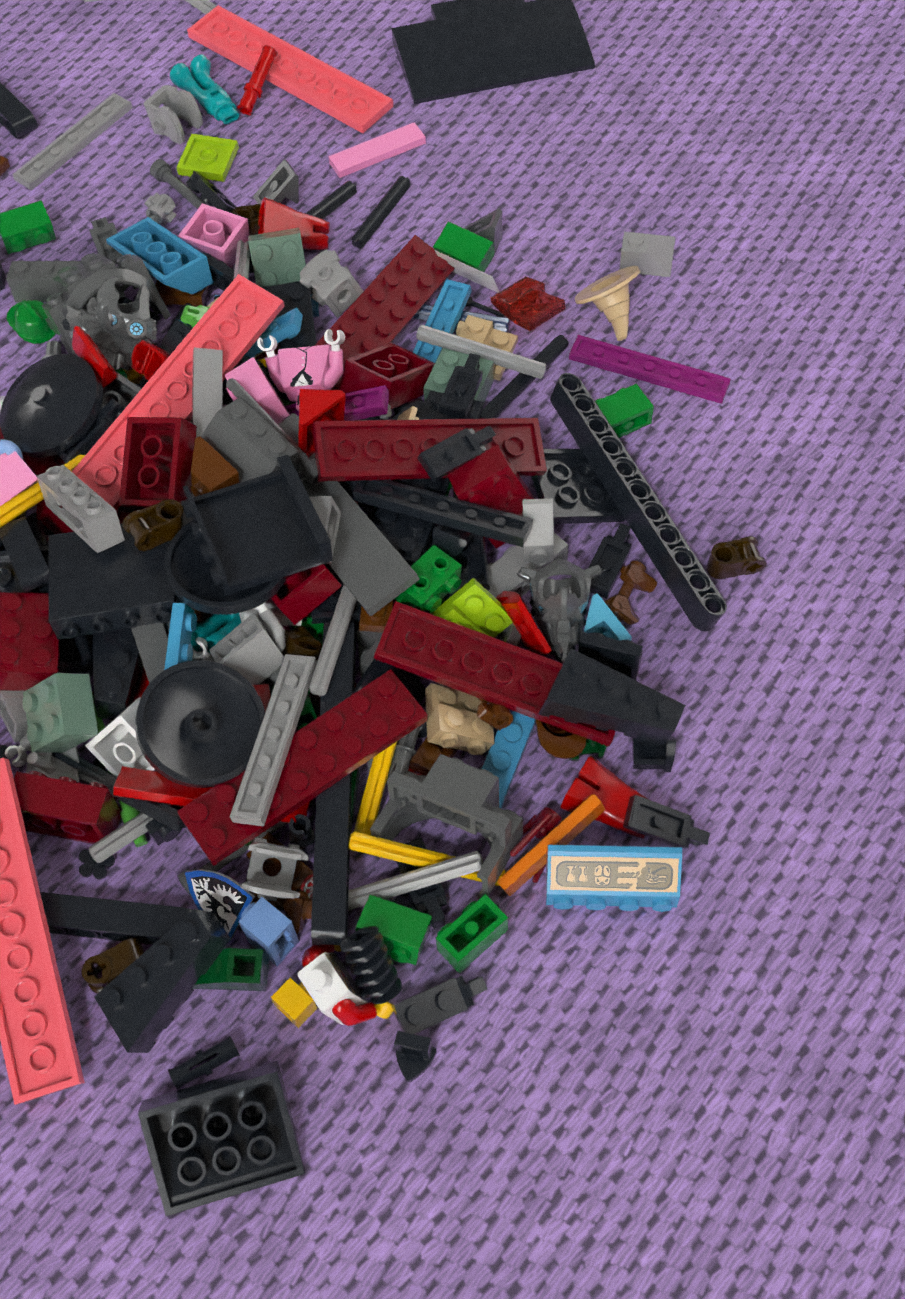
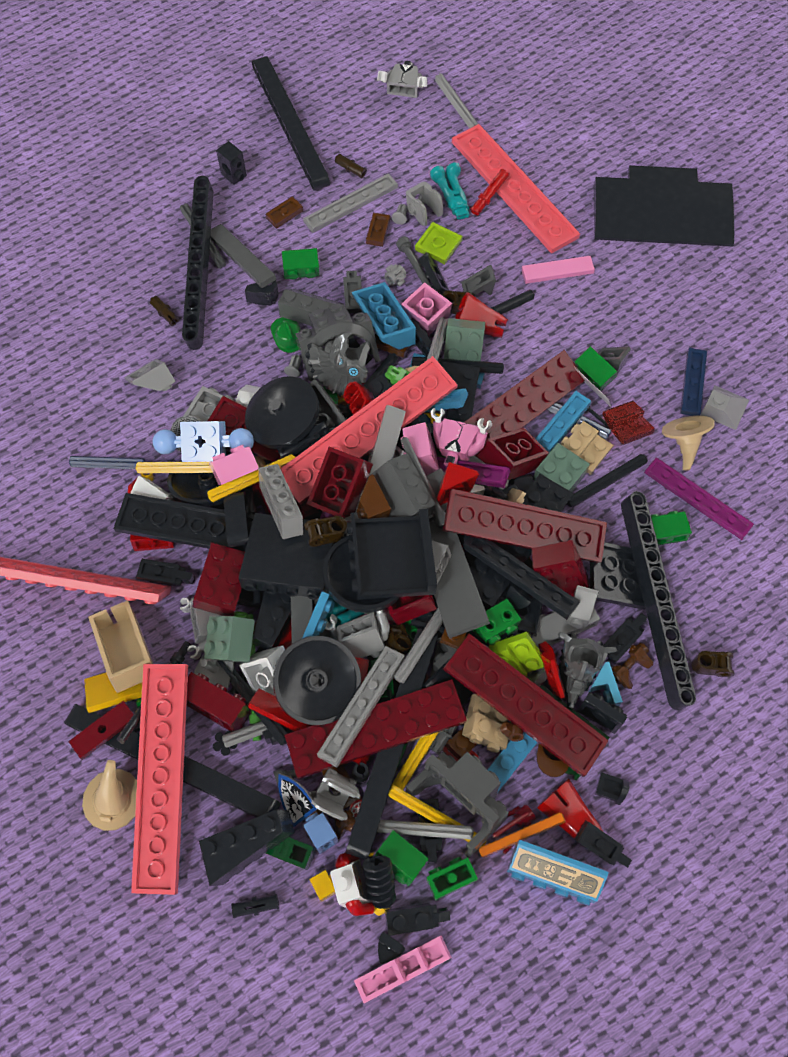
camera: 15 degrees right, 5 degrees up
(59, 96) = (350, 165): none -> dark brown axle
(88, 350) = (318, 384): red slope -> none
(111, 963) = (219, 819): dark brown piece -> none
(120, 161) = (378, 229): none -> reddish brown plate
(144, 139) = (399, 216): none -> light grey piece
(221, 1138) = (252, 960): black slope -> none
(330, 282) = (495, 372): light grey piece -> none
(380, 212) = (546, 319): black axle -> none
(440, 1077) = (402, 969): none -> bright pink slope
(455, 452) = (541, 535): black hinge -> none
(462, 388) = (561, 482): black hinge -> none
(463, 345) = (583, 453): light grey axle -> none
(597, 234) = (693, 382): none -> dark blue plate
(609, 700) = (592, 749): black wedge -> none

